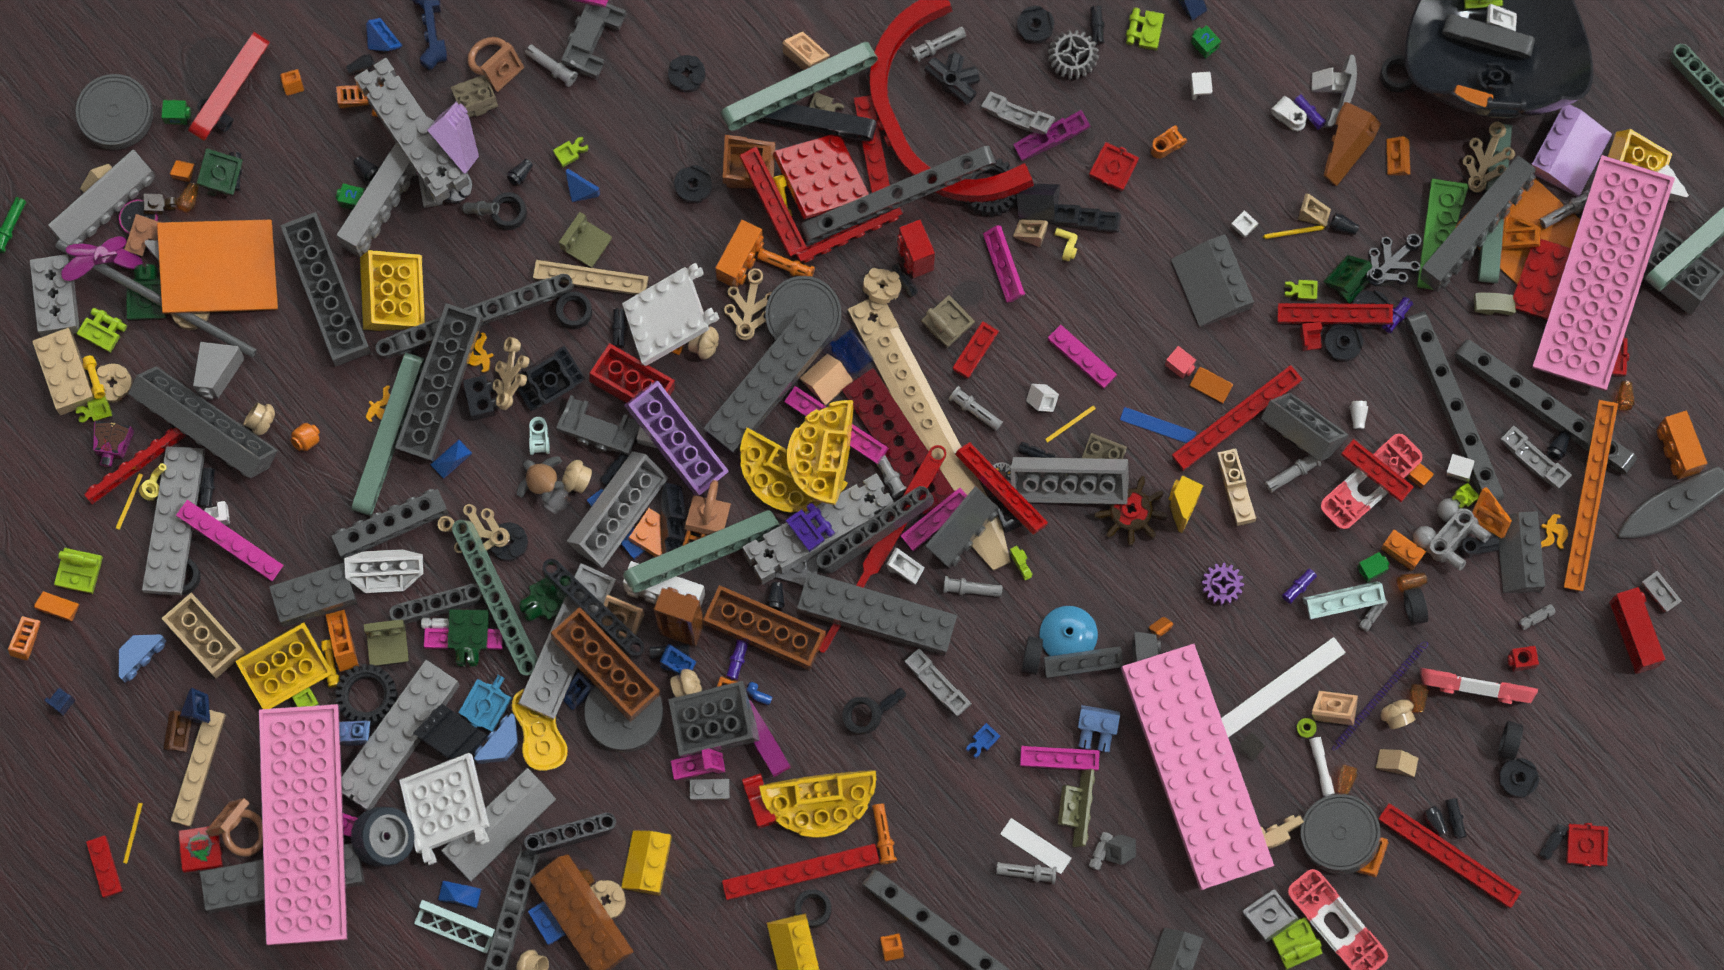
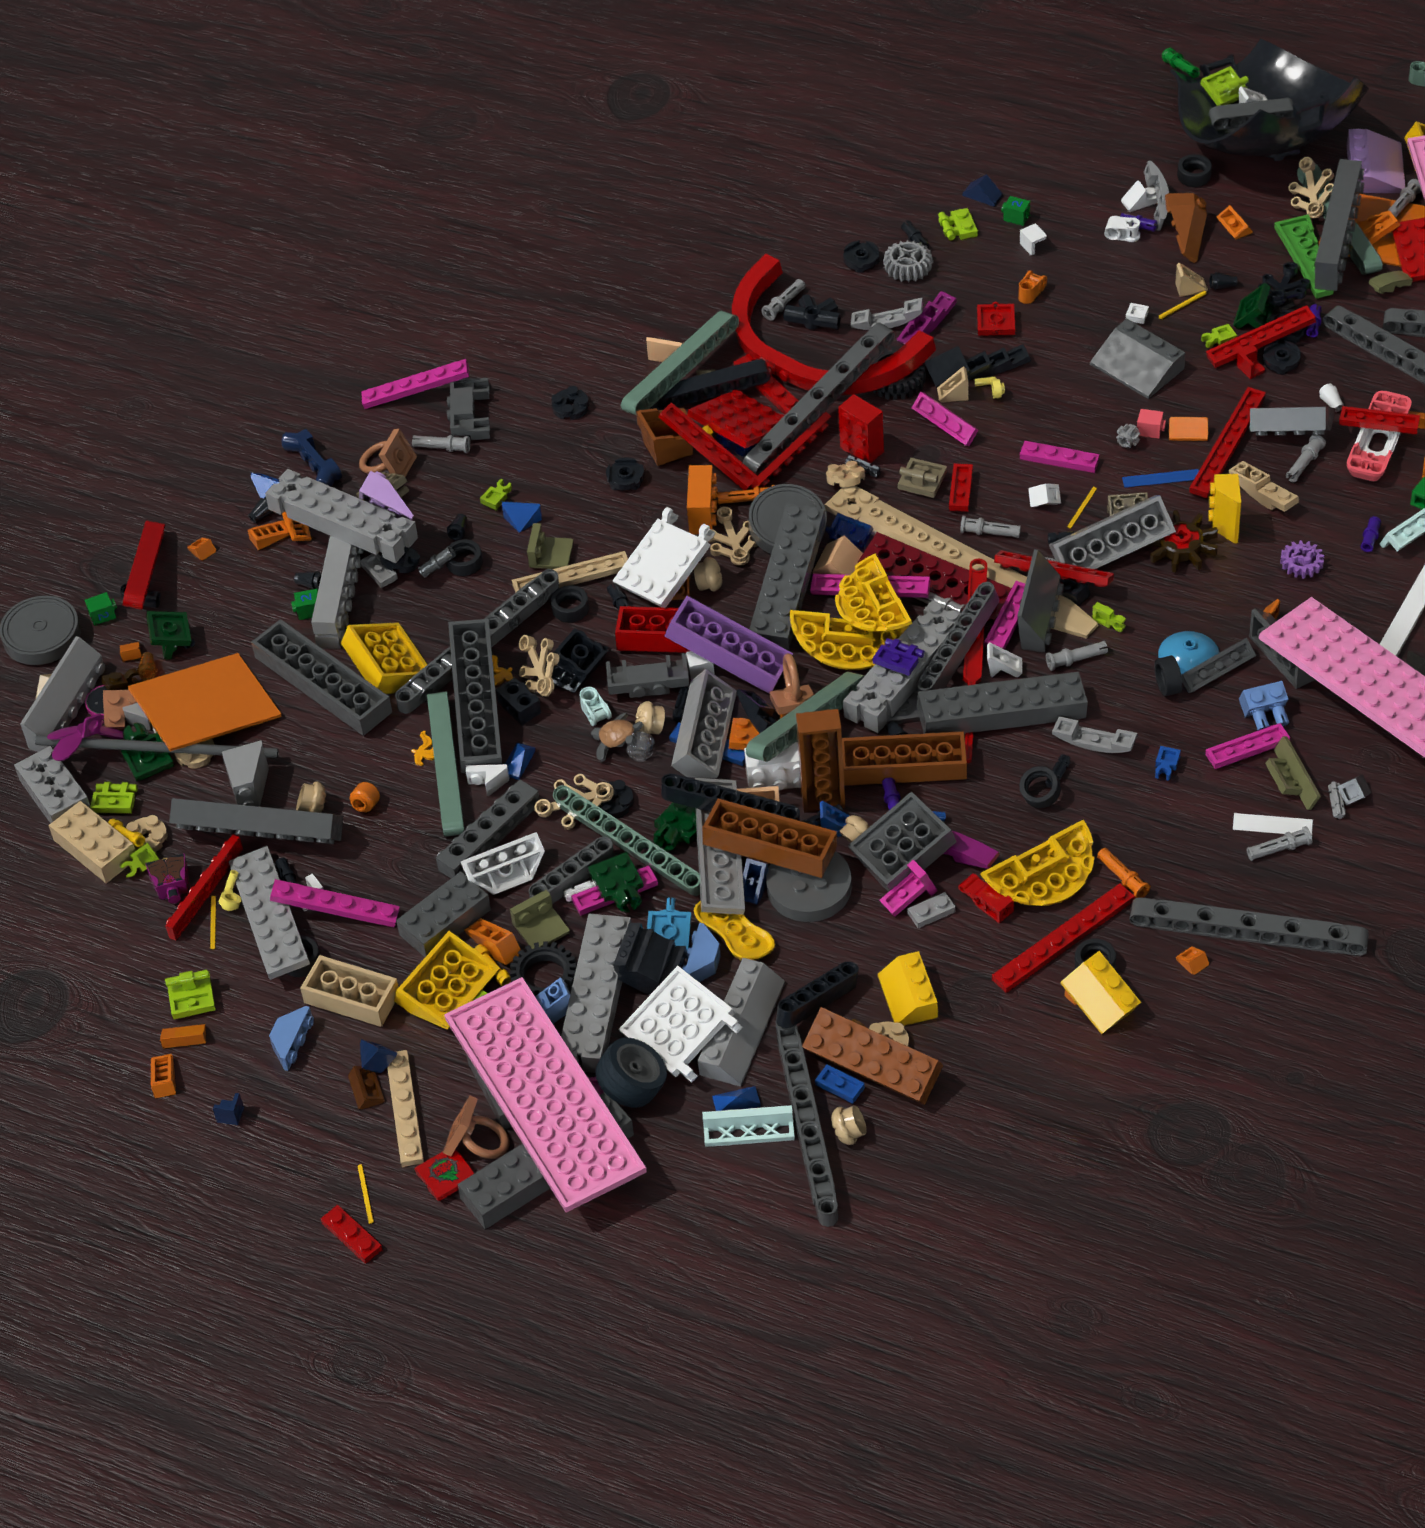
camera: 20 degrees left, 25 degrees down
(420, 469) = (491, 775): none -> white slope
(1152, 367) = (1128, 435): none -> light grey gear

